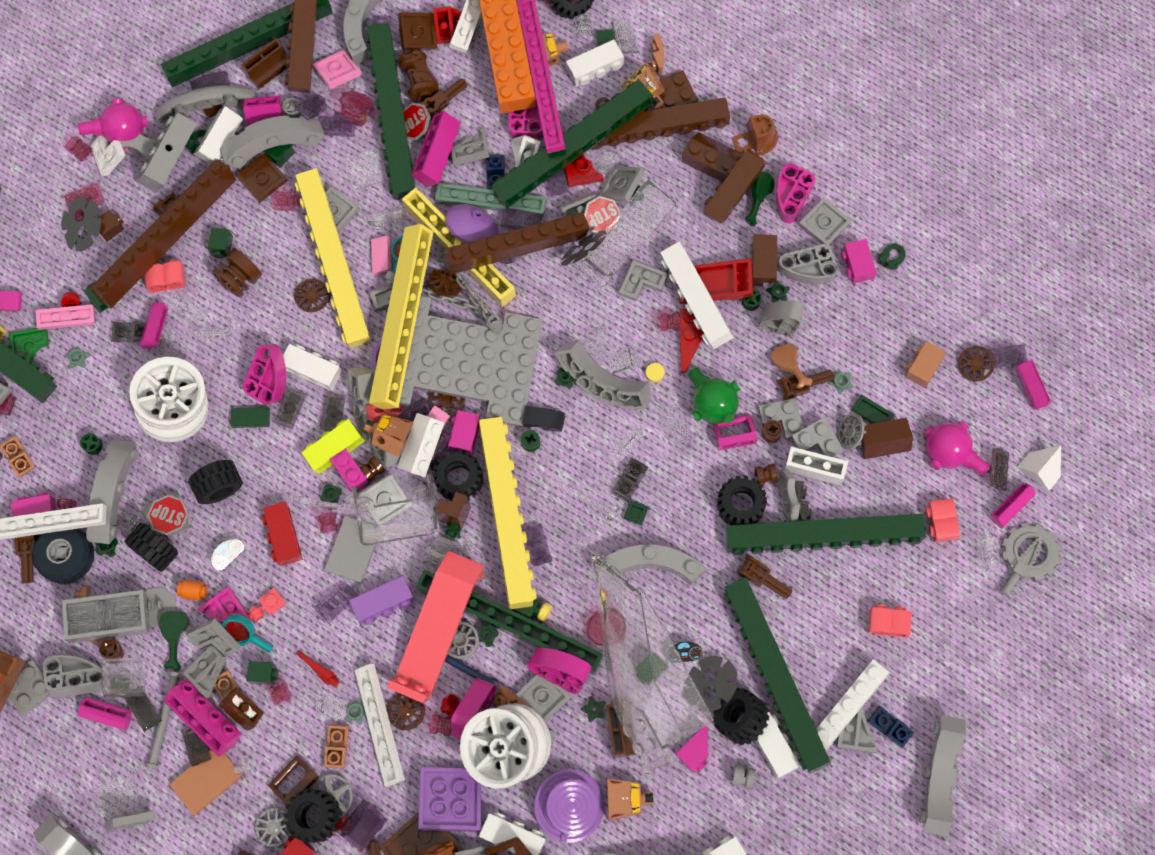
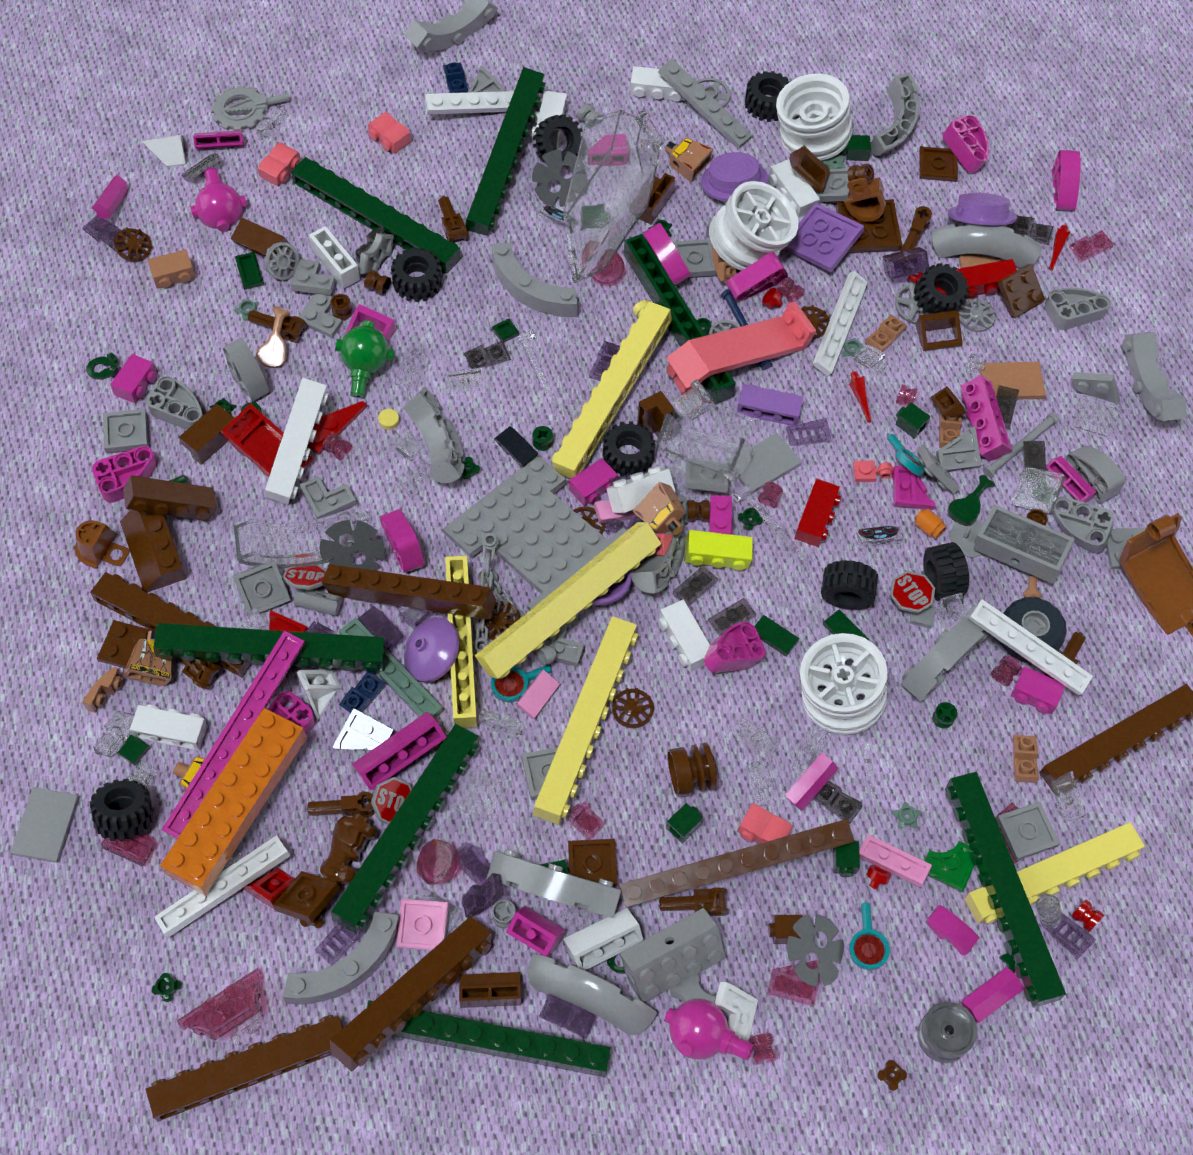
camera: 150 degrees left, 10 degrees down
(51, 255) = (868, 947): none -> piece
(86, 732) = (1097, 471): none -> light grey beam
(199, 456) = (840, 623): none -> dark green tile
(555, 281) = (402, 540): none -> dark pink beam

